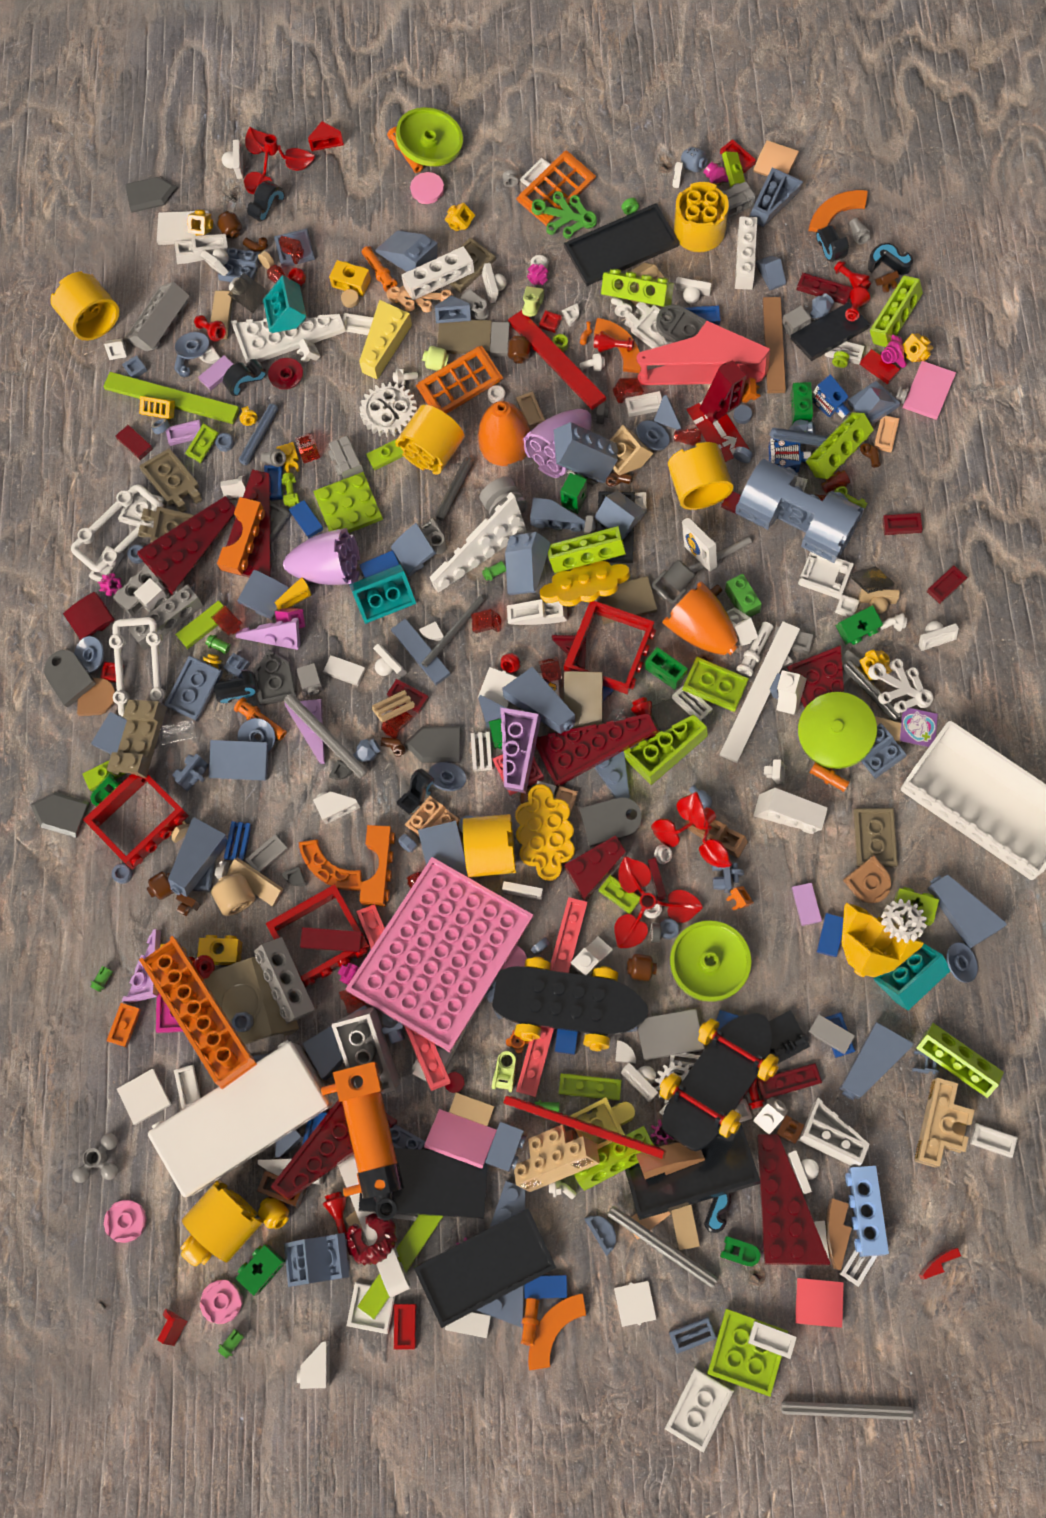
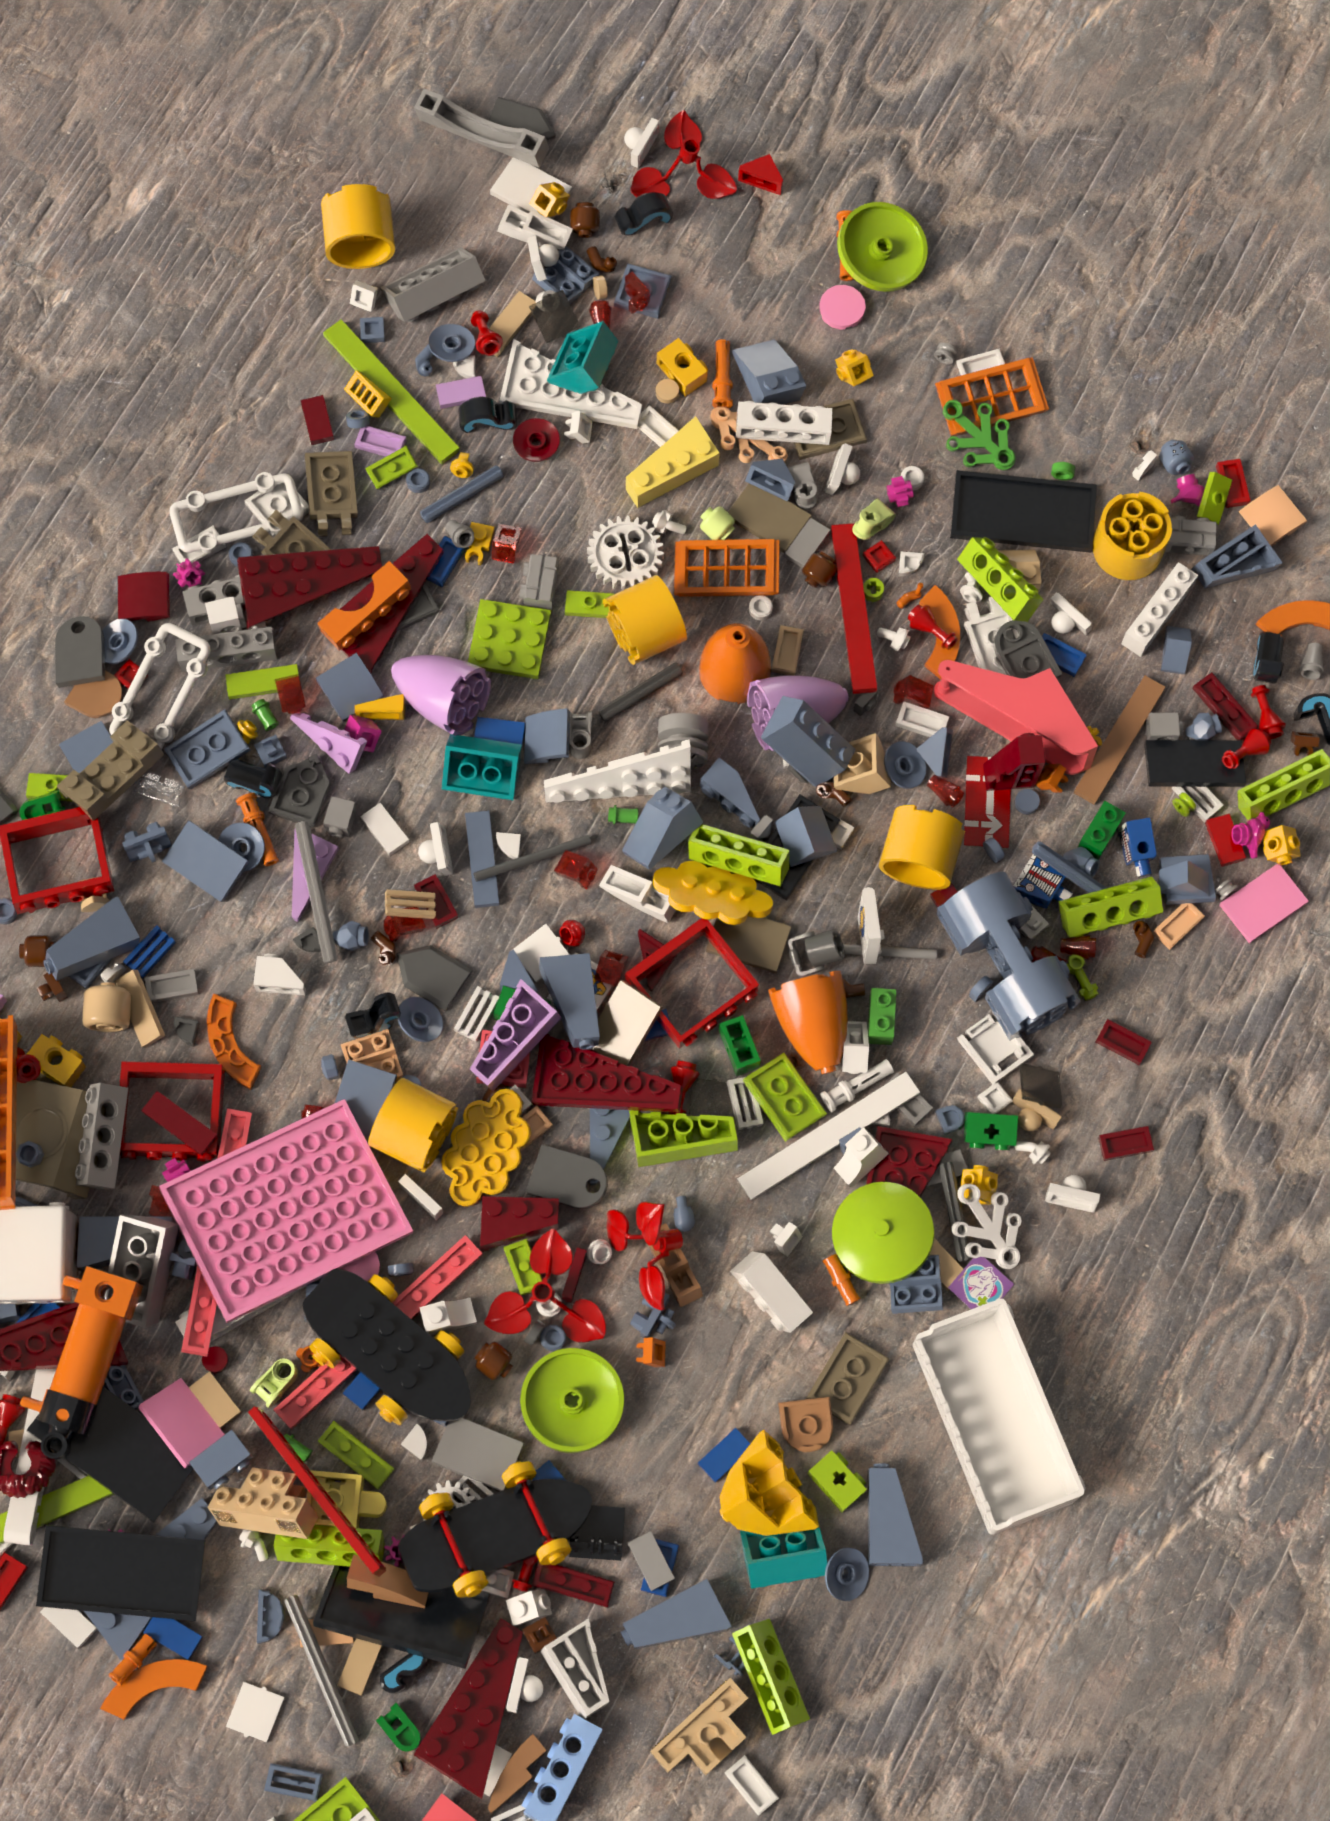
camera: 20 degrees right, 0 degrees up
(157, 201) = (510, 141): none -> light grey arch
(234, 488) = (395, 543): white tile -> none
(291, 498) = (451, 594): lime bar -> none
(297, 275) = (622, 329): red piece -> none
(306, 519) = (452, 627): blue tile -> none
(375, 889) = (263, 1096): orange arch -> none
(574, 492) = (768, 779): green brick -> none
(642, 1080) = (415, 1481): white tile -> none
(792, 543) = (980, 988): none -> sand blue tile
(806, 904) = (721, 1405): lavender tile -> none
(828, 635) = (950, 1118): none -> sand blue tile
(912, 919) = (816, 1496): white gear -> none

